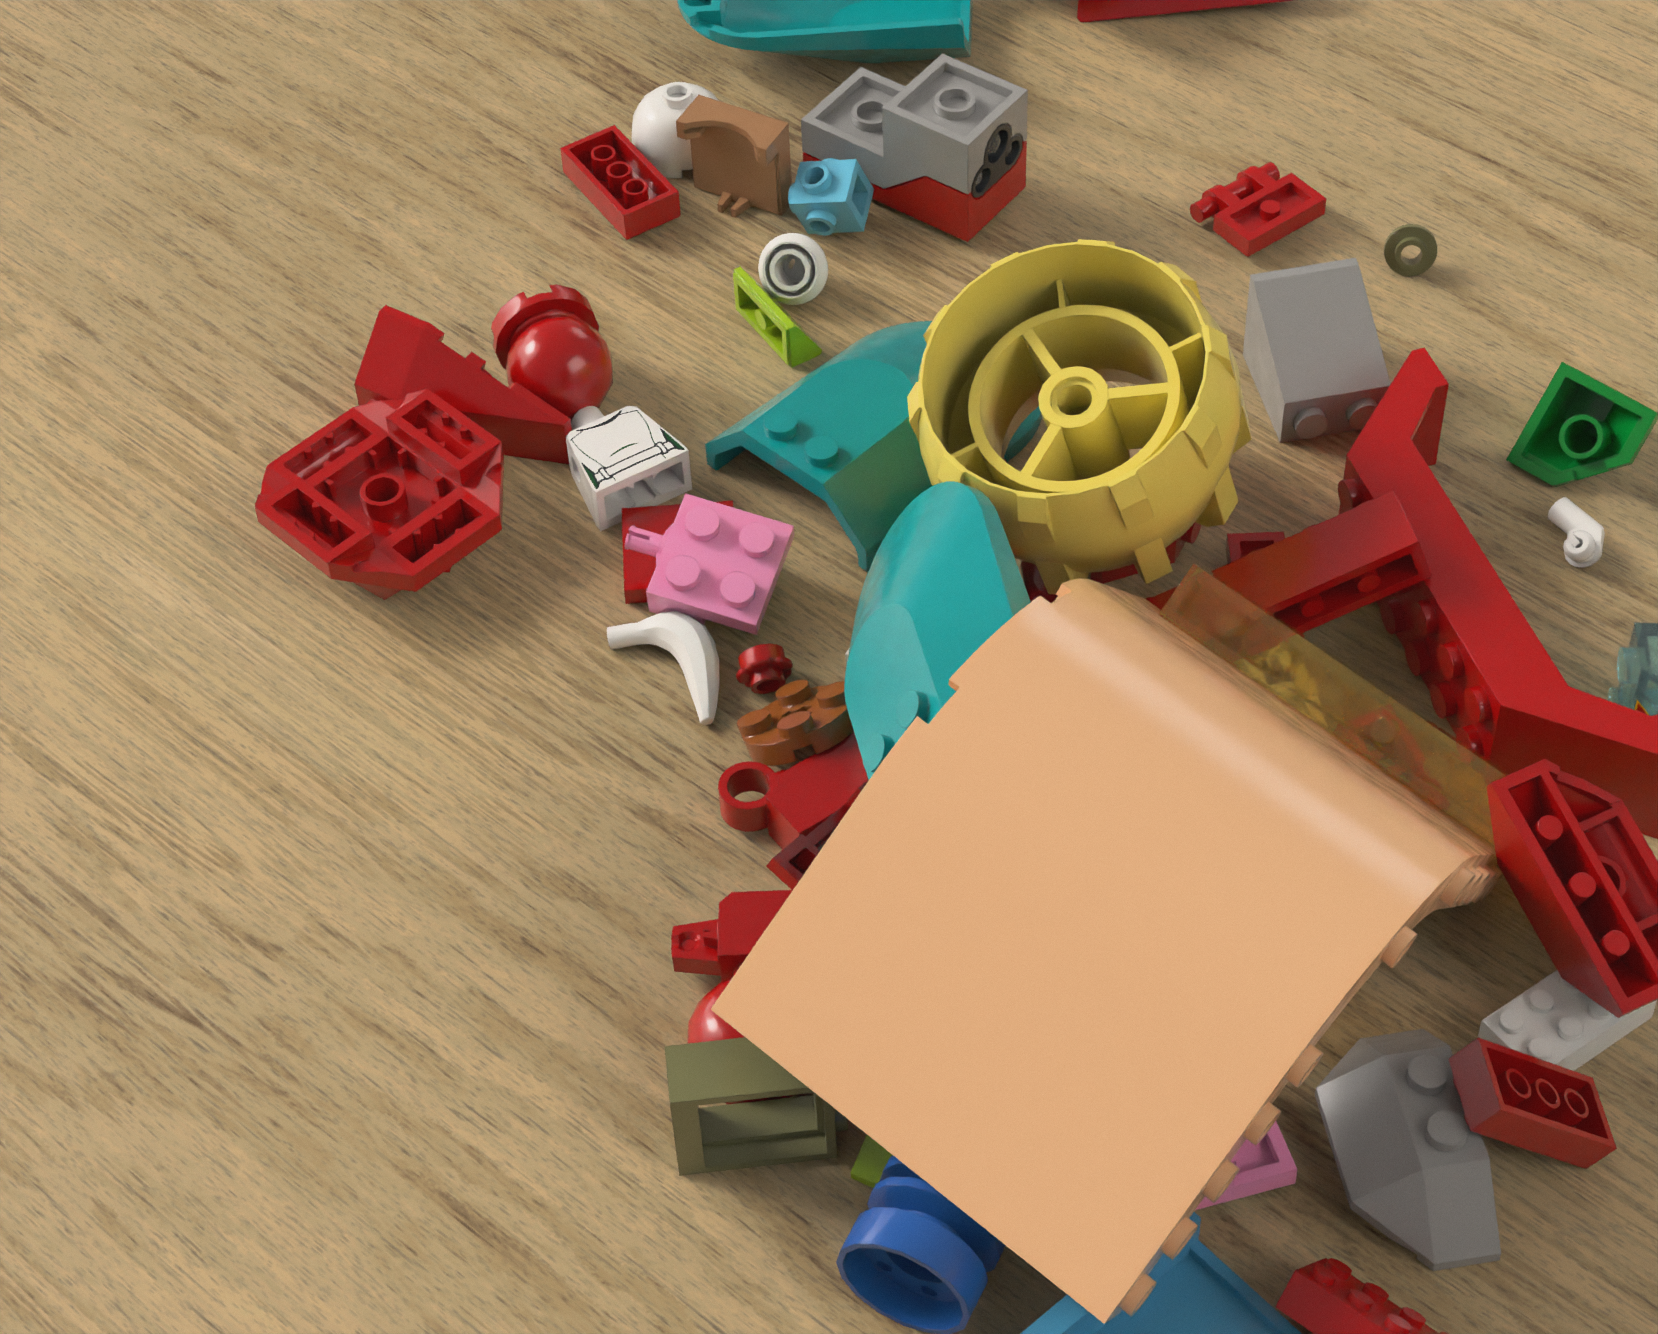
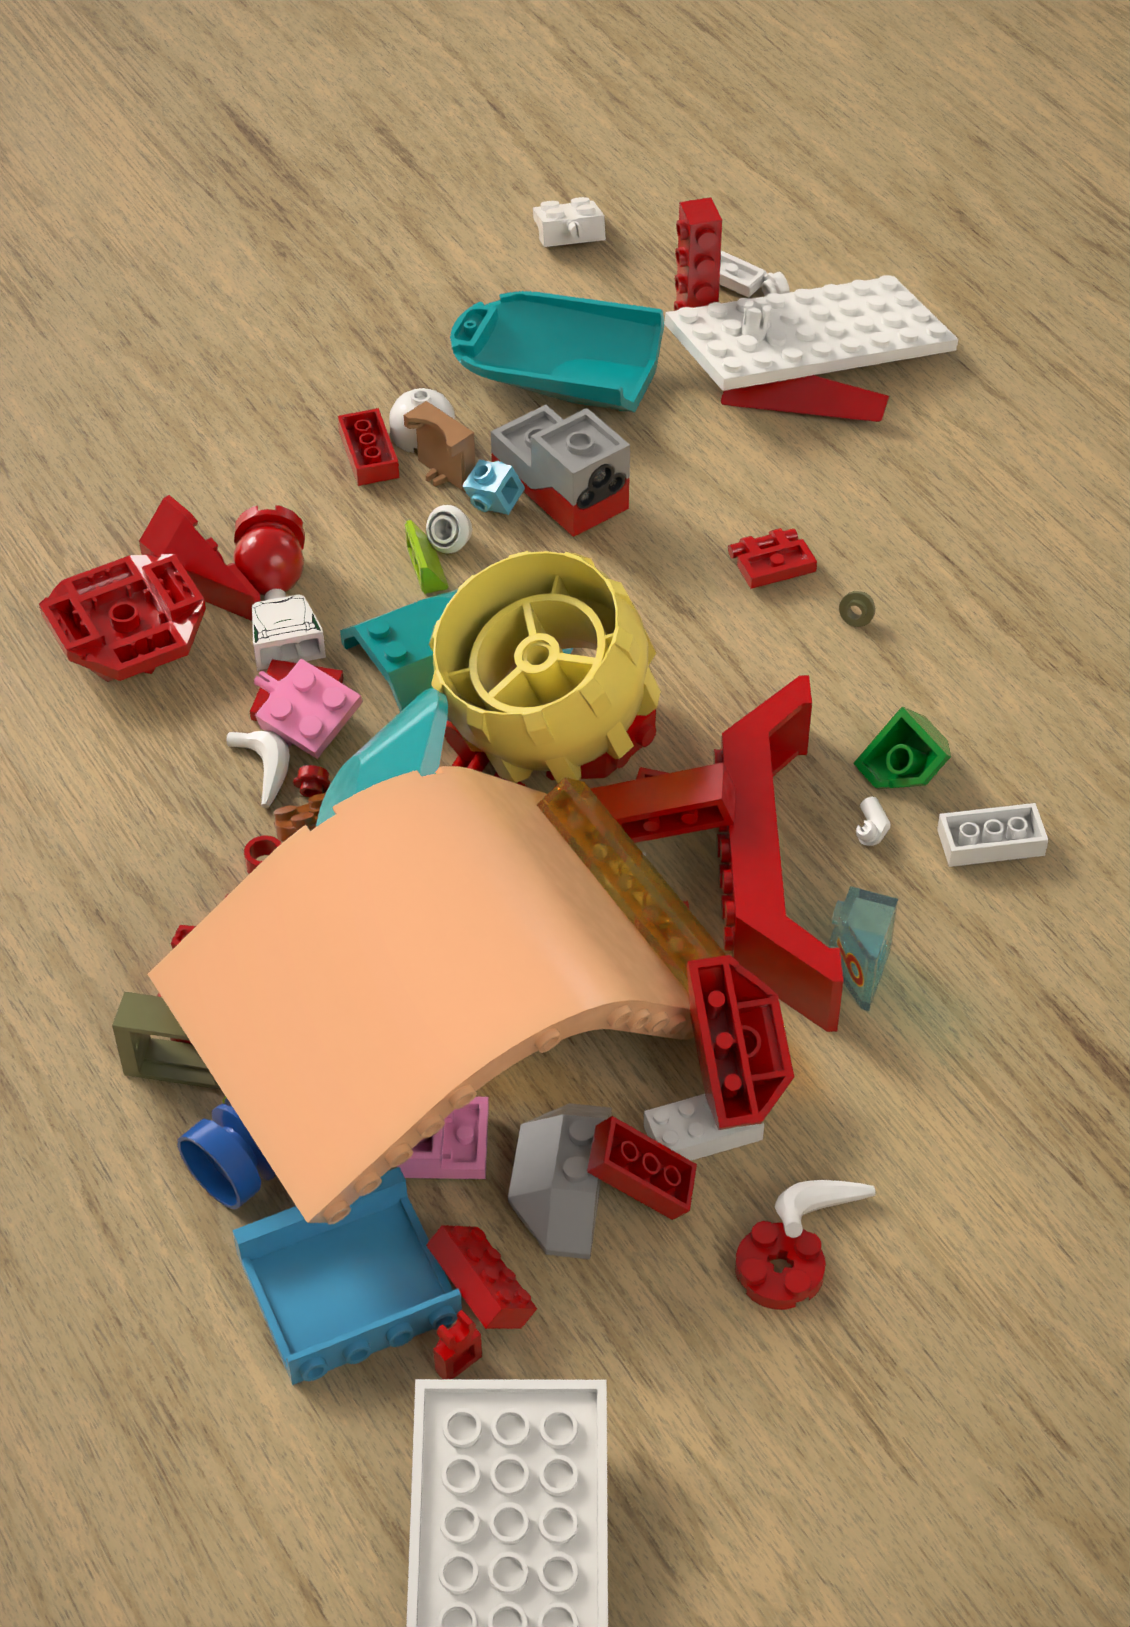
camera: 15 degrees right, 0 degrees up
(1314, 349) = (751, 655): light grey slope -> none

